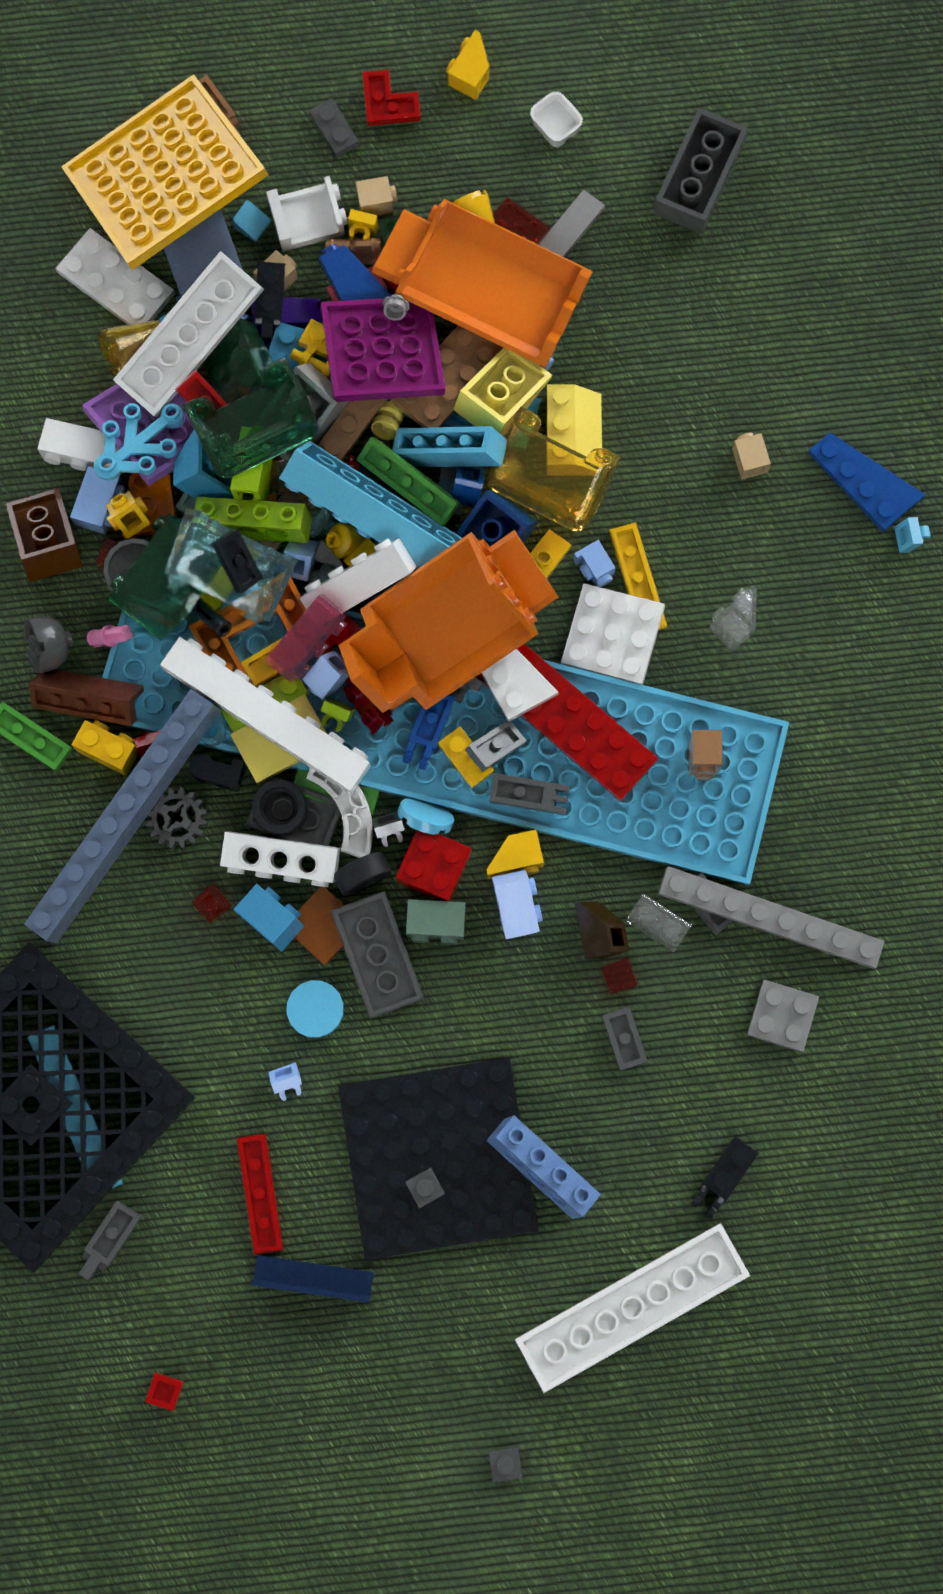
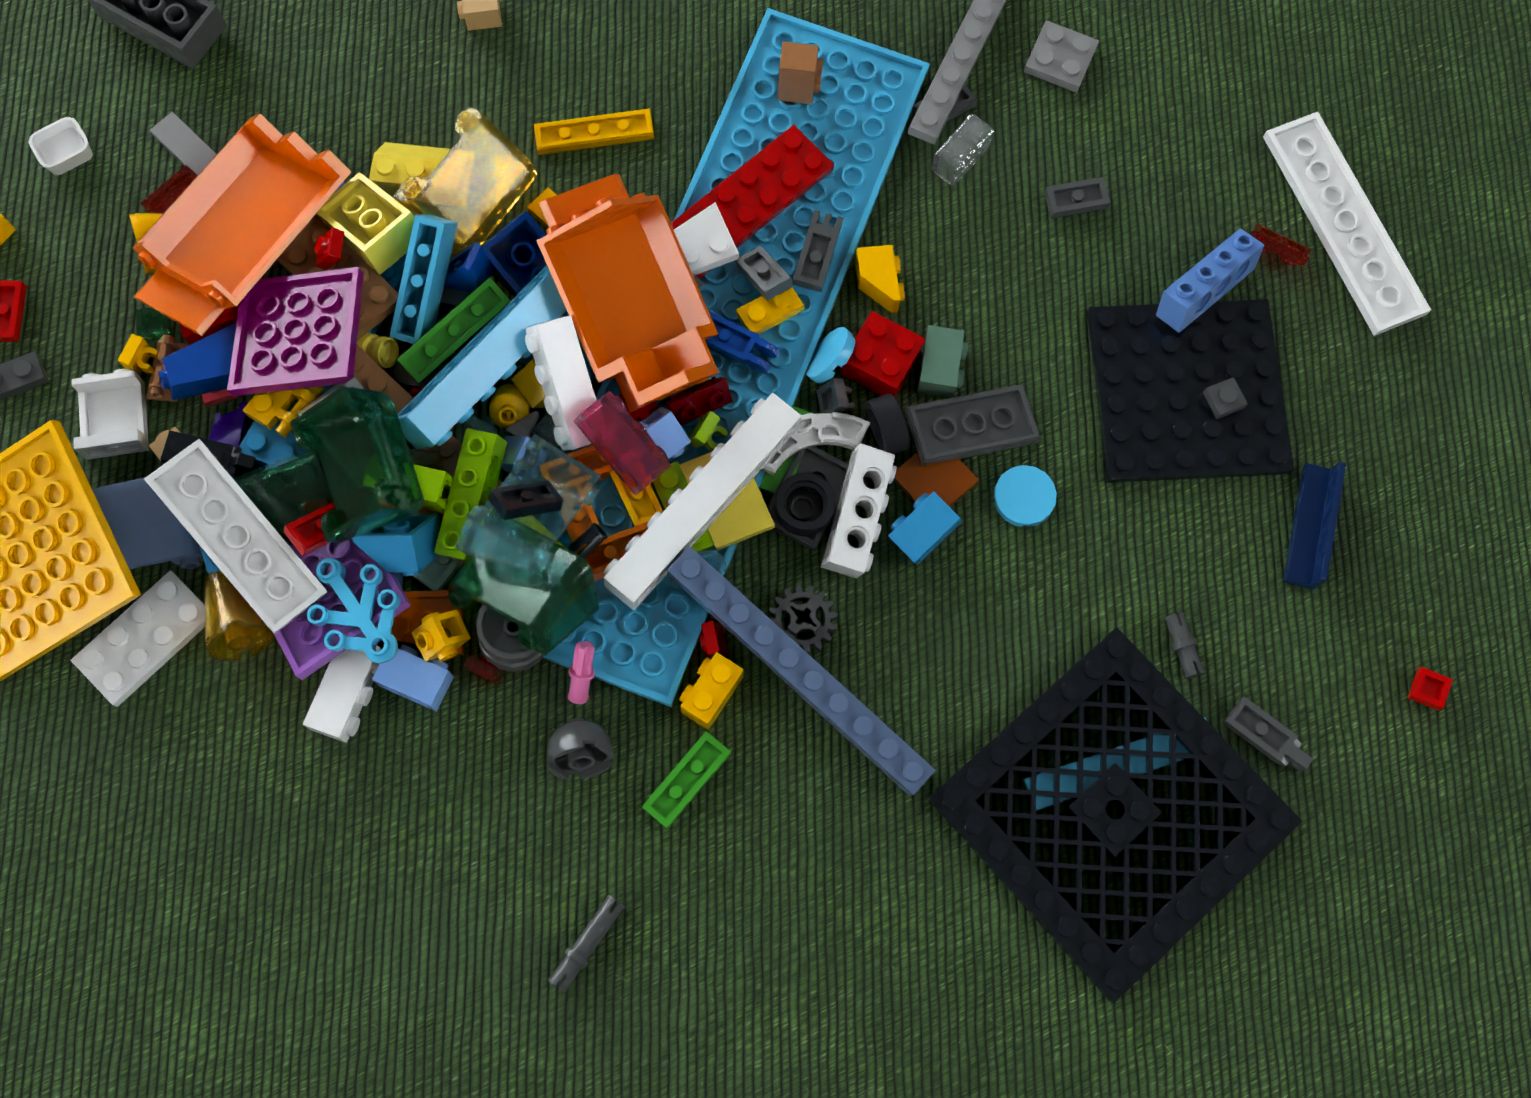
camera: 90 degrees left, 5 degrees down
(44, 535) = (444, 742): reddish brown slope -> none
(85, 696) = (650, 705): copper panel -> none
(186, 1162) = (1184, 645): none -> dark grey pin
(211, 903) = (900, 594): clear red tile -> none
(217, 773) = (757, 568): black leg -> none
(250, 221) = (105, 473): medium azure slope -> none
(260, 1194) = (1219, 572): red tile -> none
(284, 1079) = (1100, 530): light blue tile -> none
(376, 196) = (106, 337): tan brick -> none
(395, 307) = (251, 309): light grey plate -> none
(465, 361) = (329, 248): none -> red plate
(505, 1464) = (1497, 358): dark grey plate -> none
(516, 904) = (933, 277): light blue brick -> none
(595, 564) = (574, 164): light blue brick -> none
(597, 1240) = (1288, 250): none -> clear red plate
(600, 931) = (968, 201): dark brown slope -> none
(613, 634) = (654, 155): white plate -> none
(619, 976) = (1010, 197): clear red tile -> none
(726, 1174) = (1217, 127): black hinge -> none
(738, 620) = (654, 40): clear slope -> none

